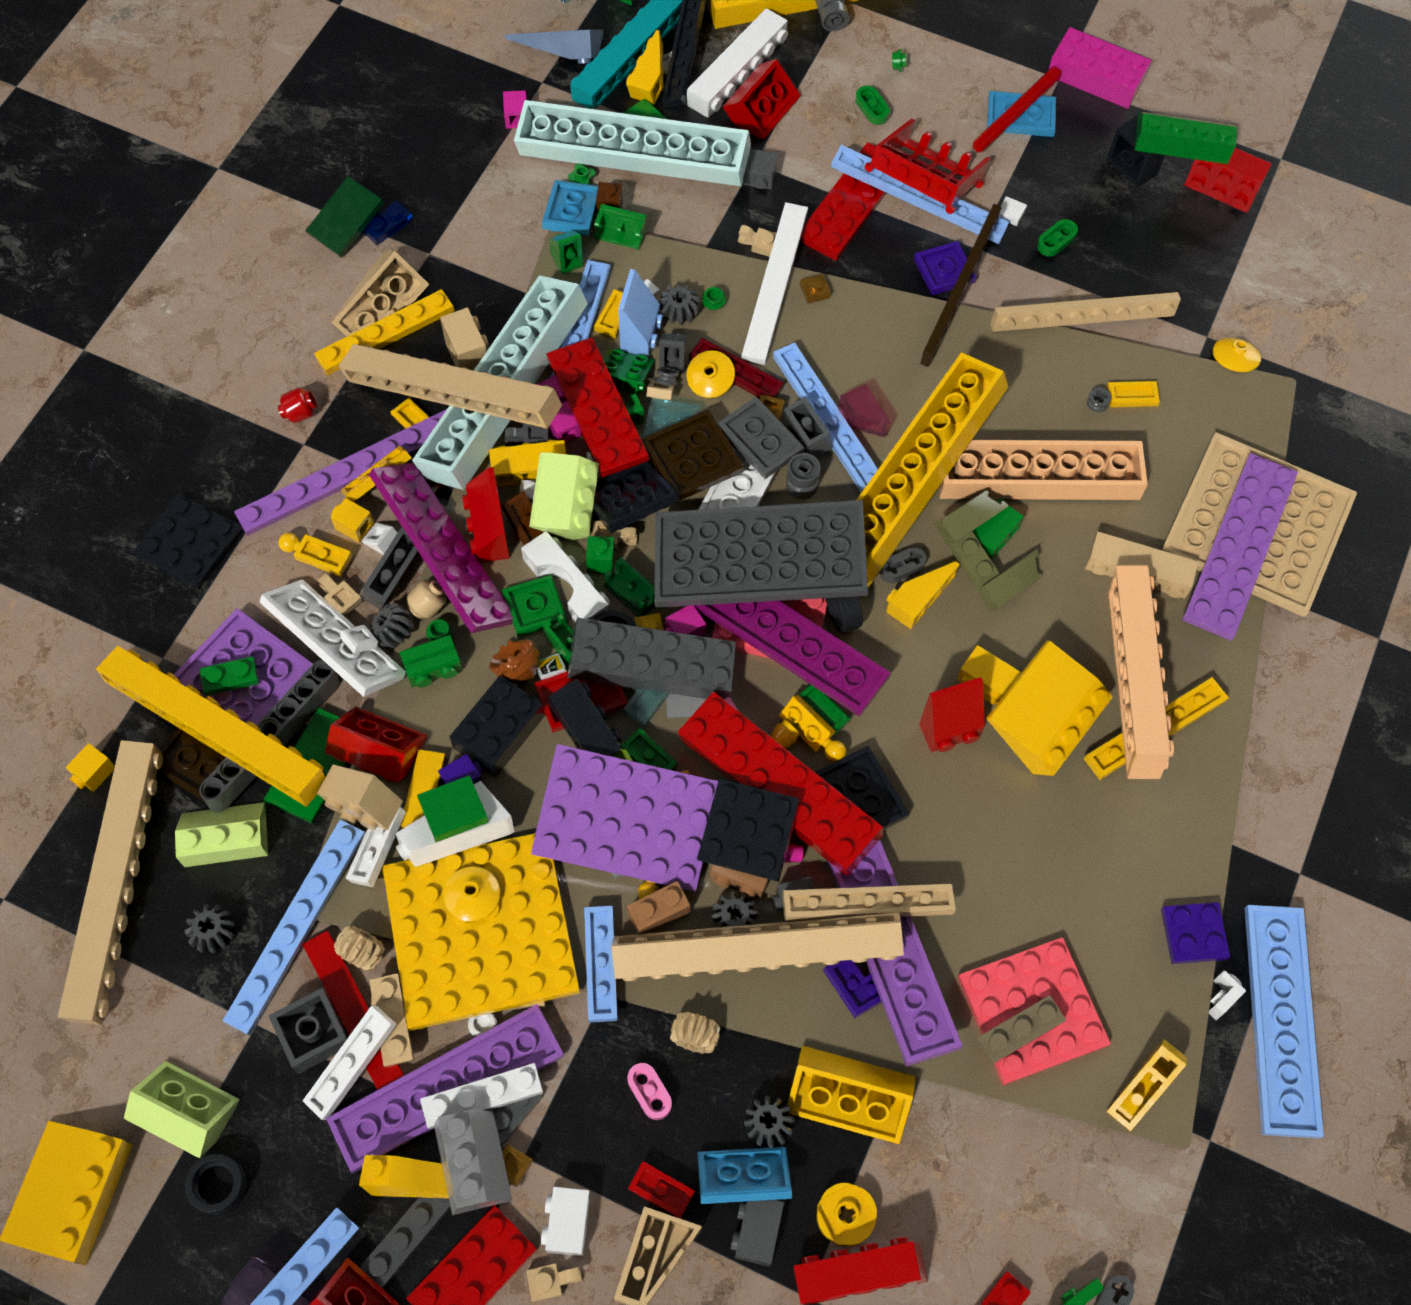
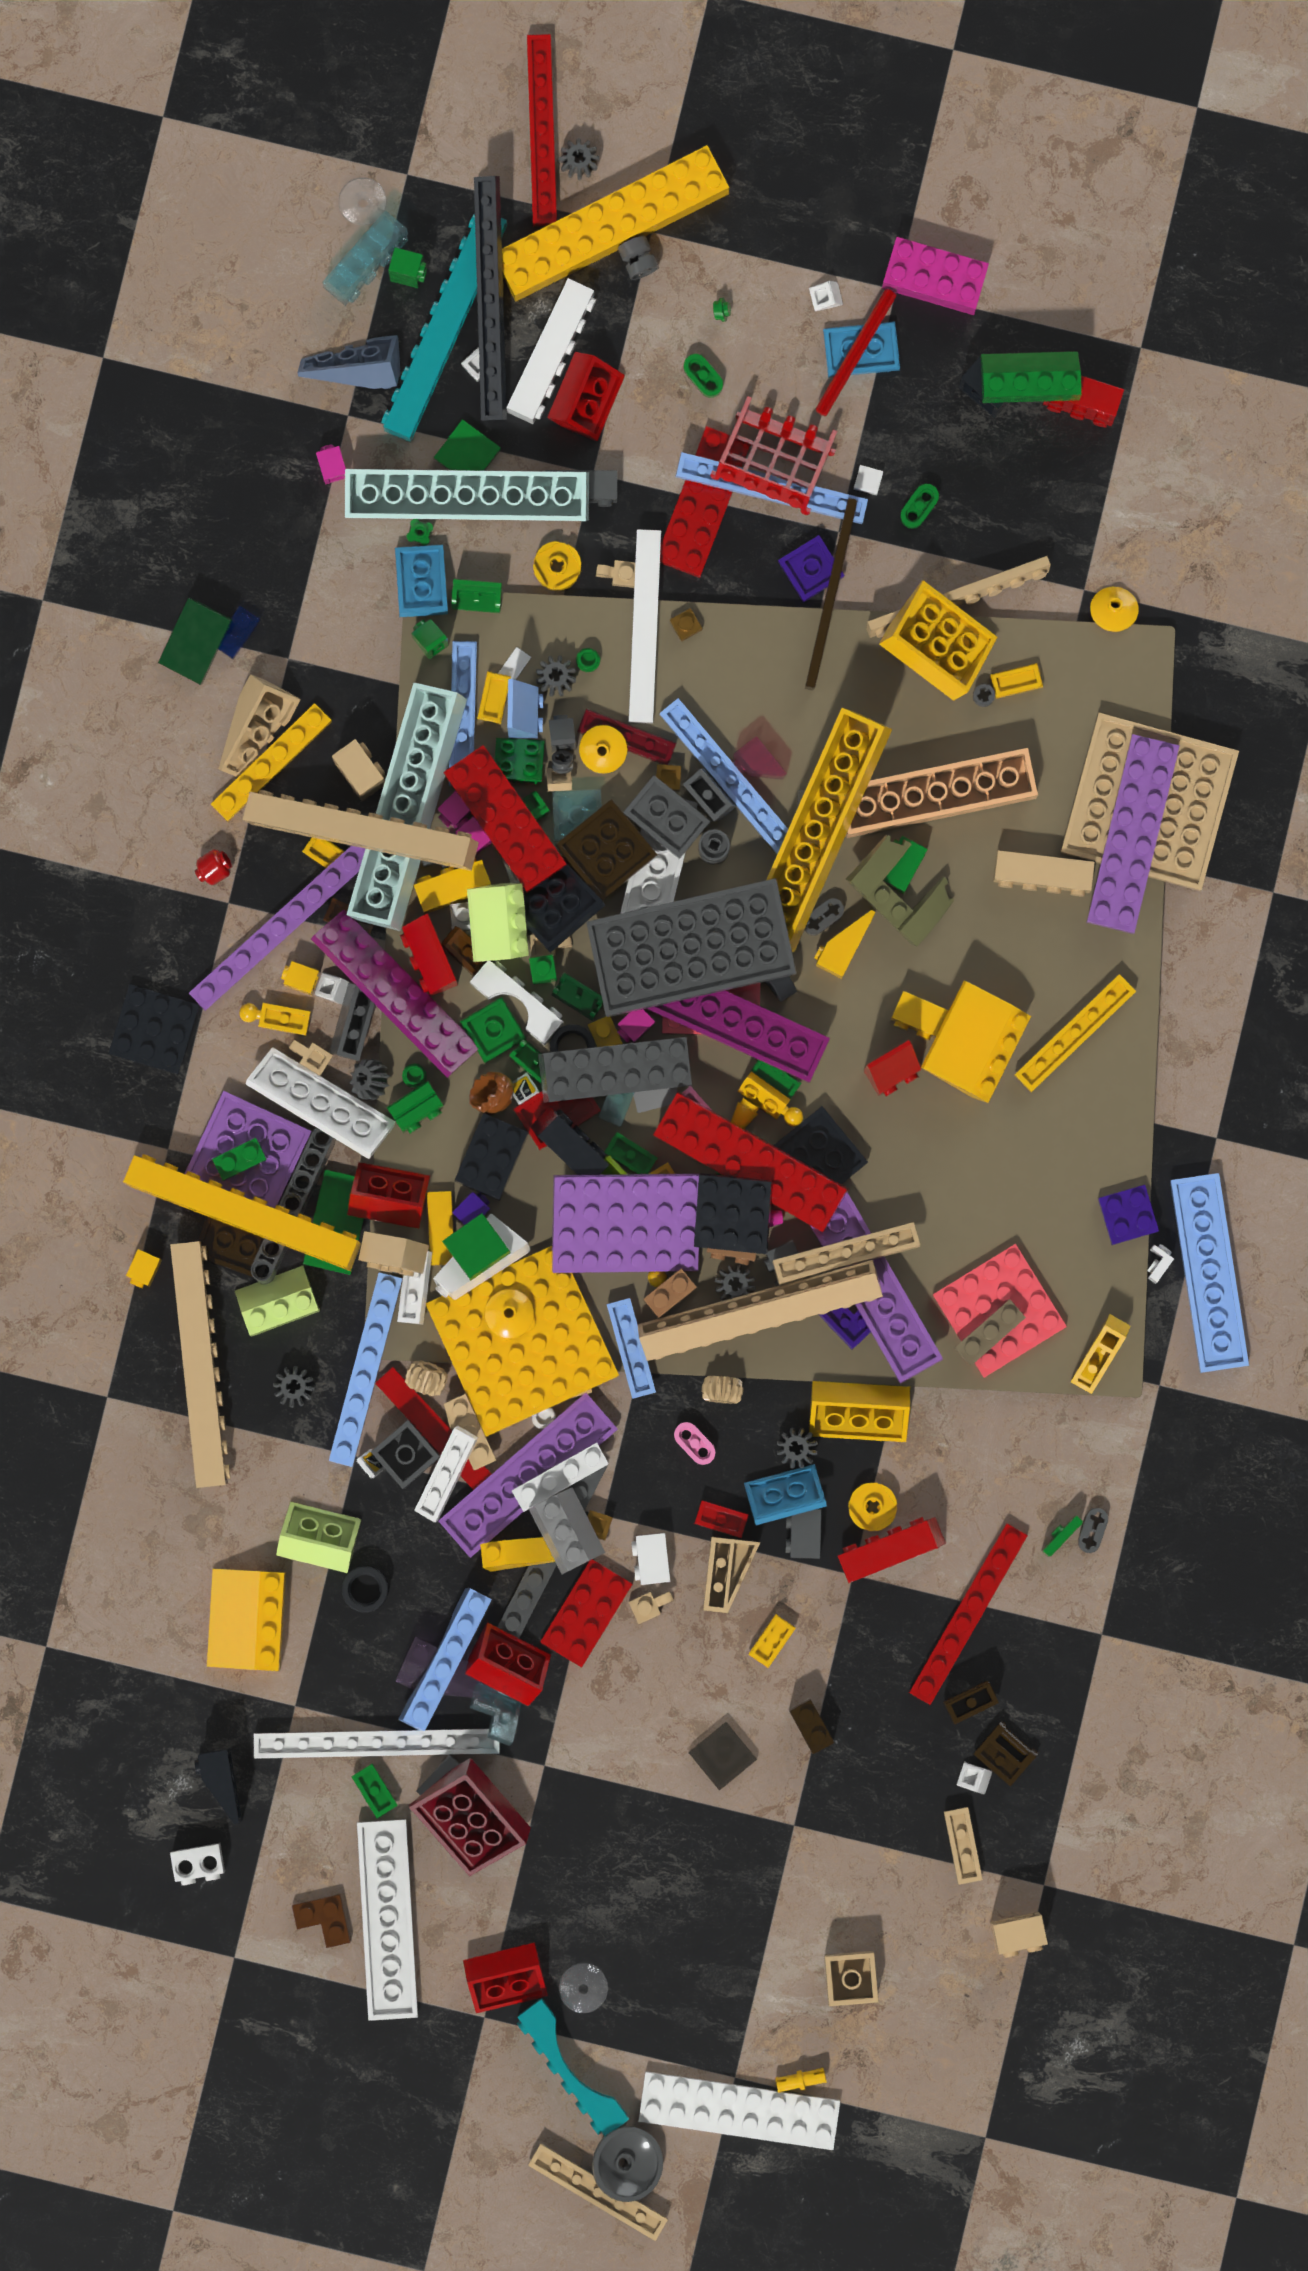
camera: 15 degrees left, 20 degrees up
(266, 1036) = (370, 1464): none -> slope
(358, 639) = (346, 1101): white tile -> none
(364, 483) = (317, 918): yellow tile -> none
(426, 599) = (395, 1049): tan head -> none
(609, 194) = (457, 562): reddish brown brick -> none
(648, 75) = (462, 392): yellow slope -> none
(701, 234) = (561, 553): none -> yellow plate
(995, 69) = (826, 295): none -> white slope
(1061, 337) = (938, 641): none -> yellow slope
(1139, 673) = (1049, 989): light nougat brick -> none

